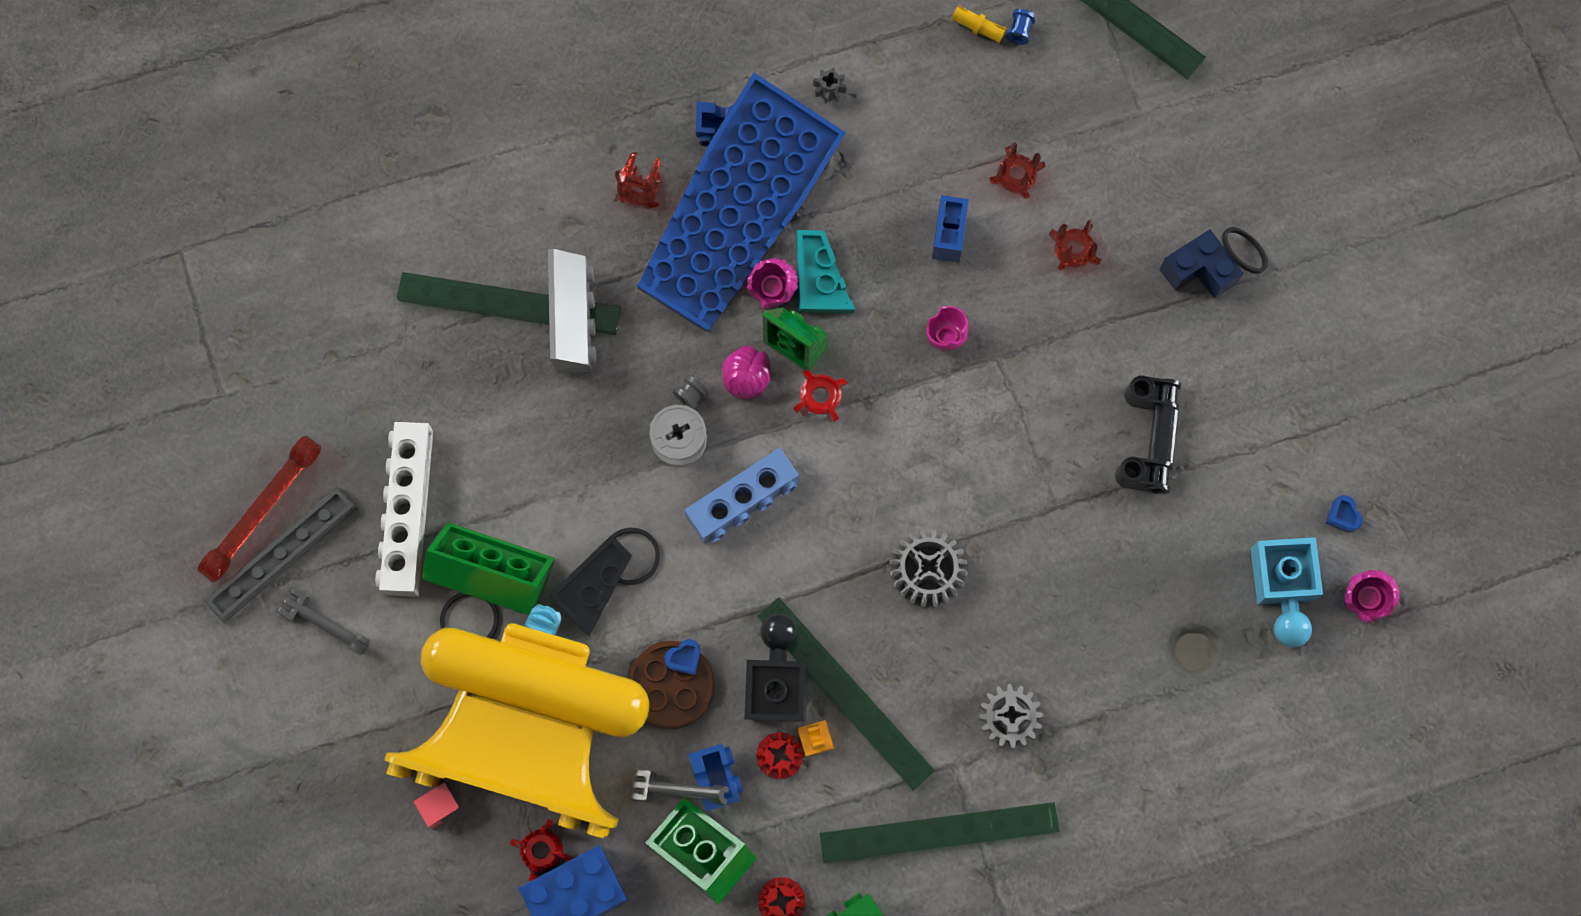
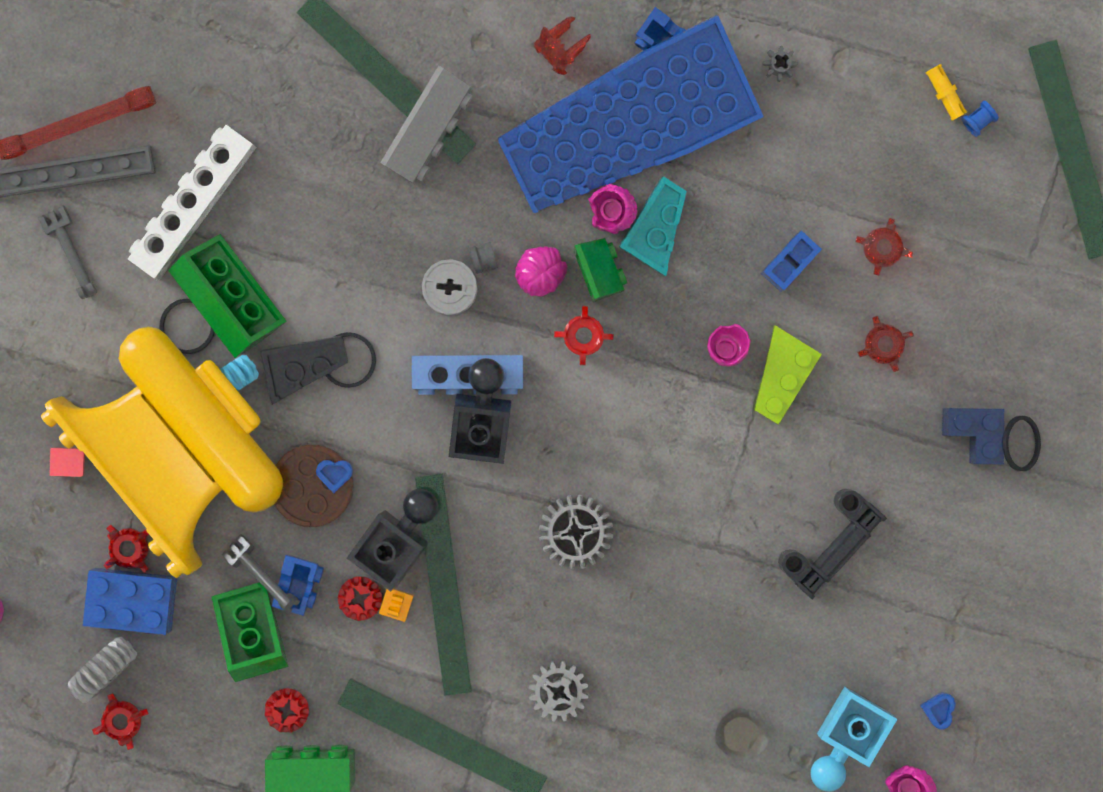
camera: 30 degrees right, 15 degrees up
(803, 539) = (481, 411): none -> black brick
(1010, 324) = (784, 374): none -> lime wing

